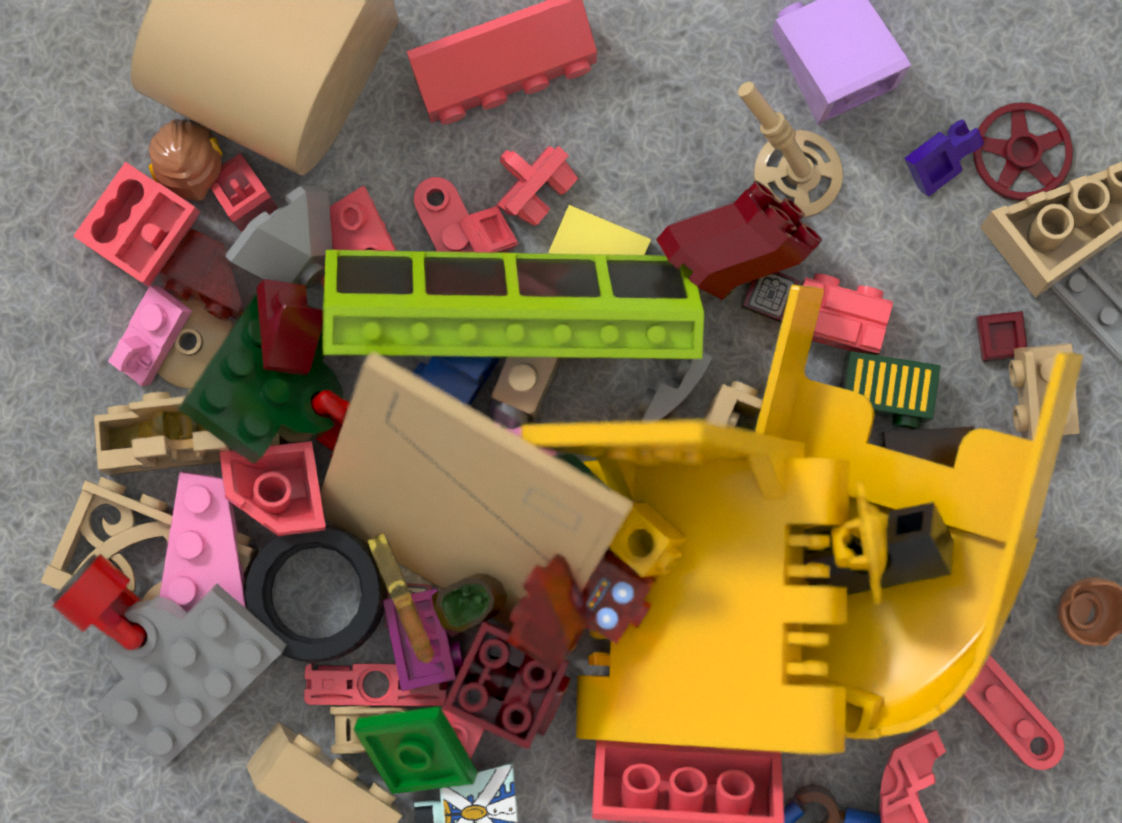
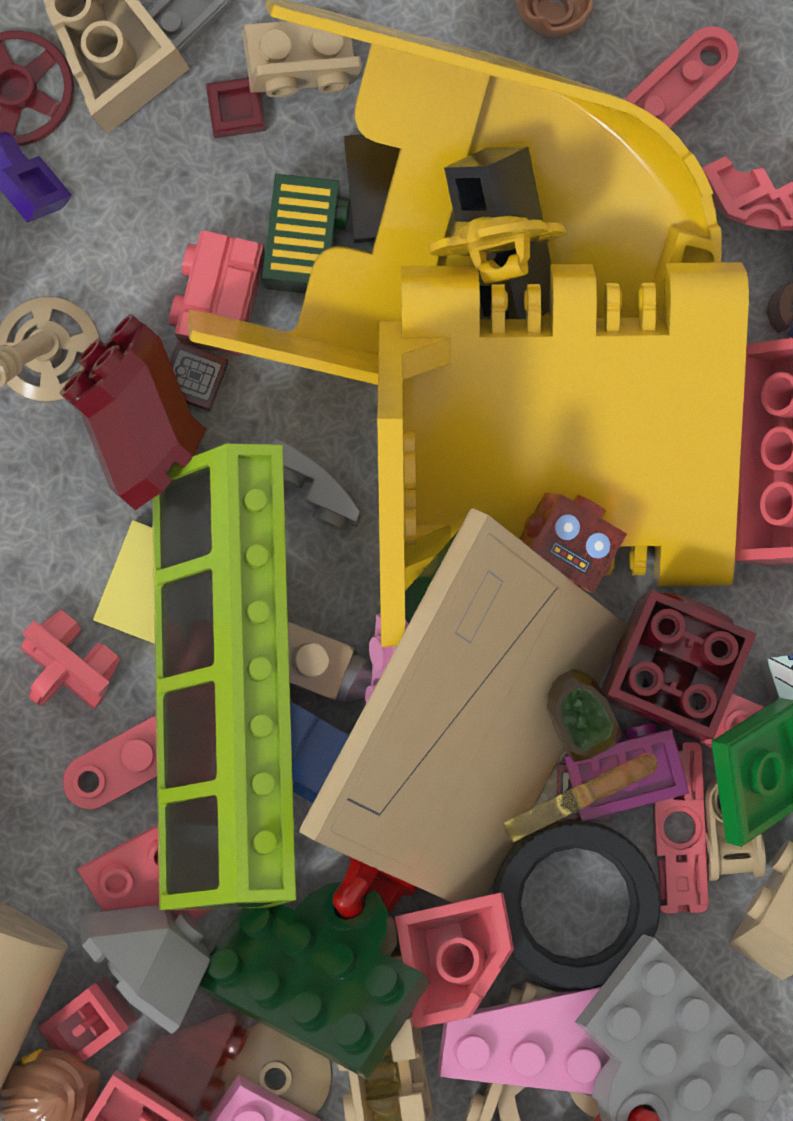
camera: 90 degrees left, 0 degrees up
(287, 327) = (258, 952): dark red slope -> none
(488, 231) = (129, 715): coral tile -> none
(550, 616) = (600, 610): clear red slope -> none
(666, 538) = (499, 479): yellow brick -> none
(734, 397) = (344, 428): tan bracket -> none

